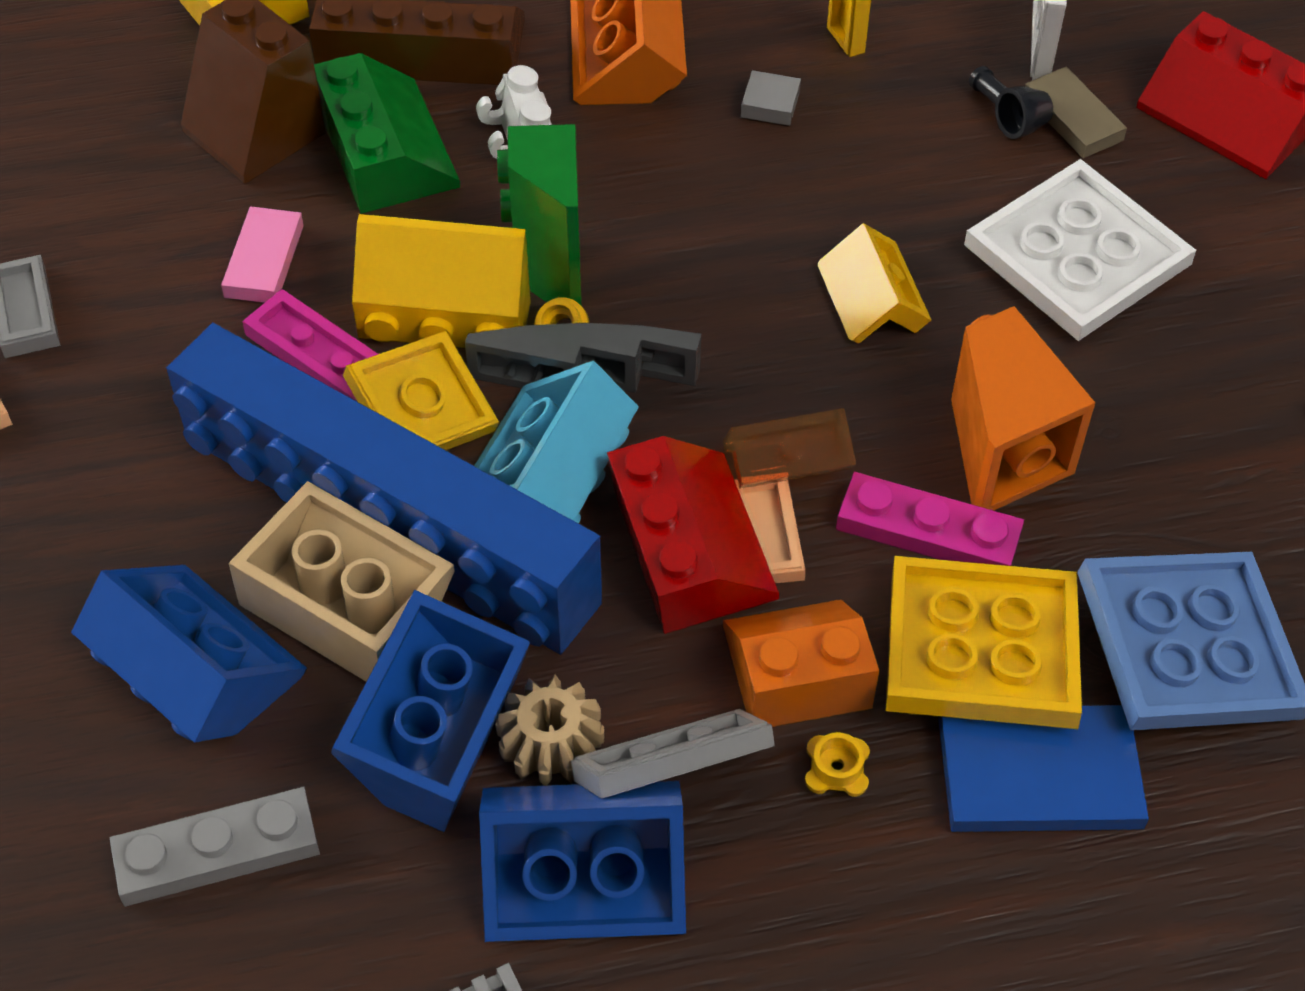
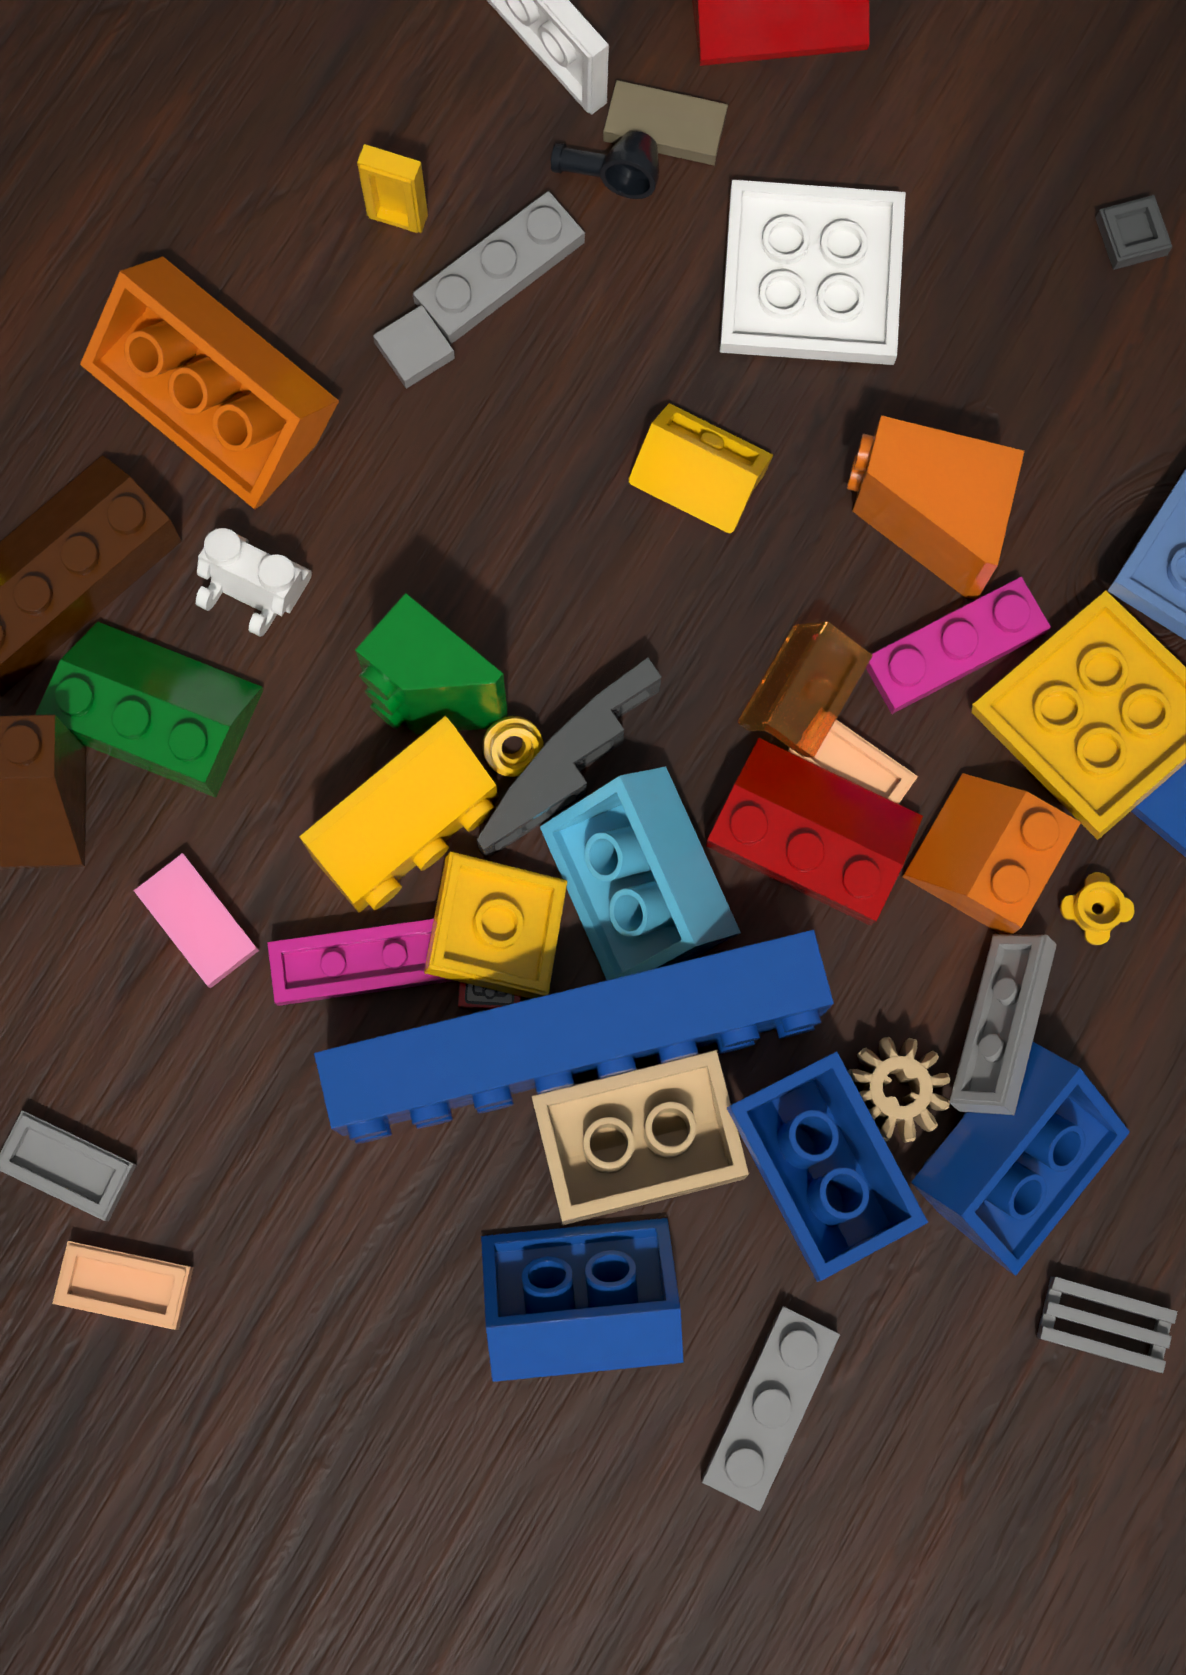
camera: 50 degrees left, 25 degrees up
(874, 101) = (499, 267): none -> light grey plate

